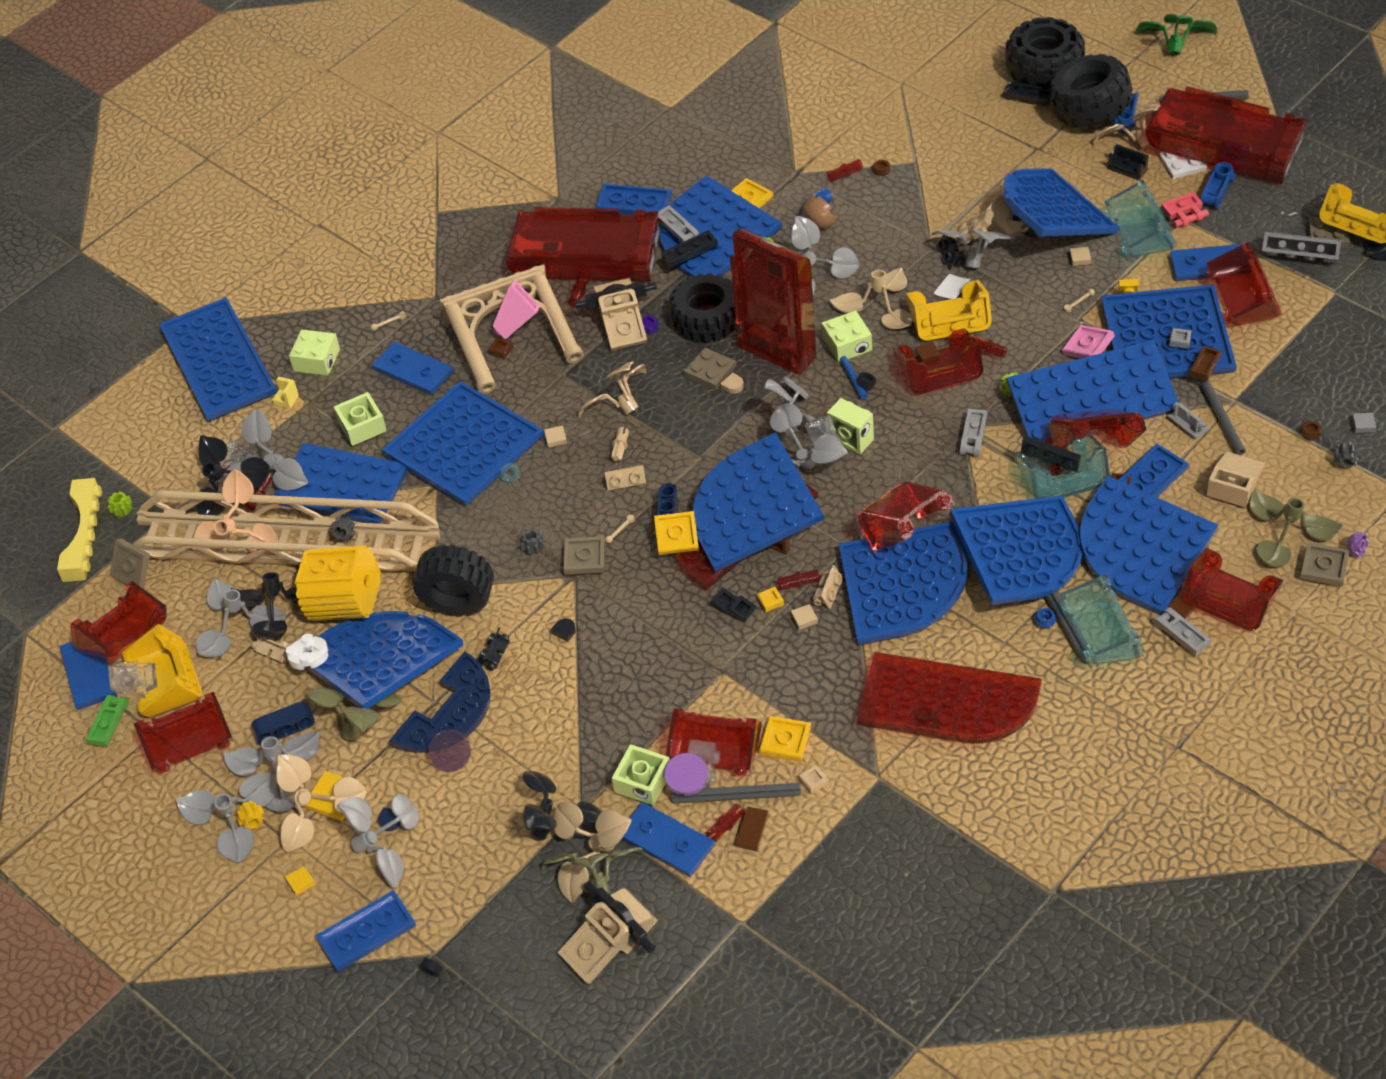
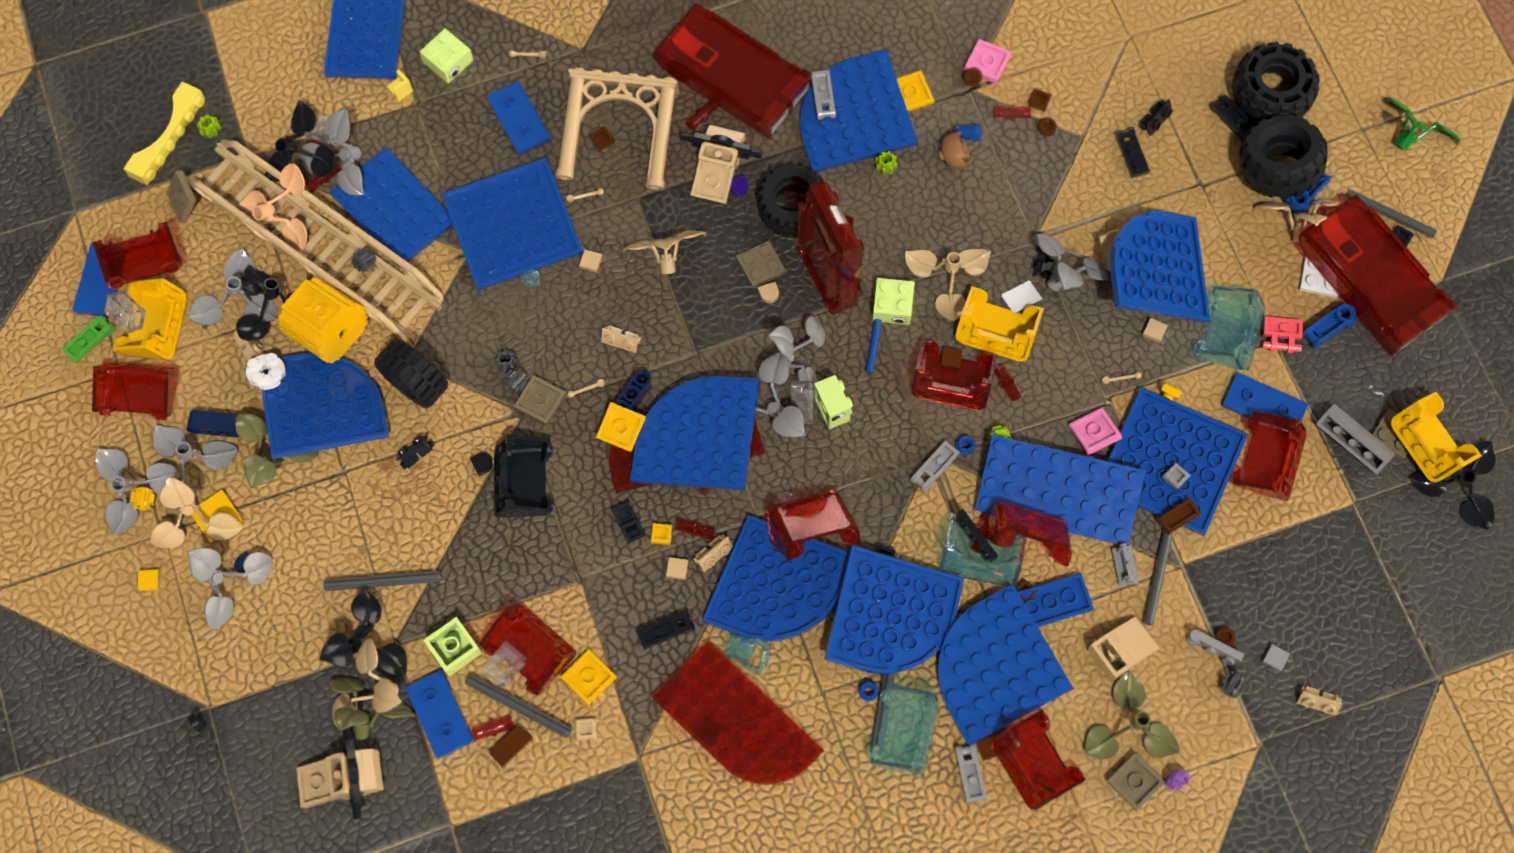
camera: 25 degrees right, 20 degrees up
(360, 418) = (441, 151): yellowish green brick -> none
(365, 930) = (169, 657): blue plate -> none
(449, 750) = (323, 530): tile -> none
(461, 711) = (352, 498): dark blue plate -> none
(514, 311) = (628, 113): bright pink slope -> none
(526, 385) = (570, 198): none -> tan hinge
(534, 763) = (382, 580): none -> dark grey axle
(551, 550) = (516, 380): none -> dark grey gear
(606, 619) = (521, 476): none -> black windscreen
(619, 444) = (636, 302): tan axle -> none
(633, 198) = (810, 39): blue tile -> none
(686, 774) = (482, 671): medium lavender tile -> none
(689, 249) = (817, 128): black plate -> none
(793, 161) = (973, 76): none -> reddish brown tile
(797, 147) = (989, 60): none -> bright pink plate
(806, 233) = (915, 181): light grey plant -> none
(829, 666) = (665, 630): none -> black plate
(861, 152) = (1039, 100): none -> reddish brown tile
(866, 380) = (880, 357): black tile -> none
(911, 643) = (742, 649): none -> clear light blue piece
(964, 152) = (1132, 152): none -> black plate
(966, 120) = (1161, 112): none -> black hinge
(977, 222) = (1081, 244): tan plate -> none
(987, 403) = (968, 440): none -> blue plate
(1128, 162) = (1268, 251): black hinge -> none
(1309, 438) = (1215, 647): none -> light grey plate

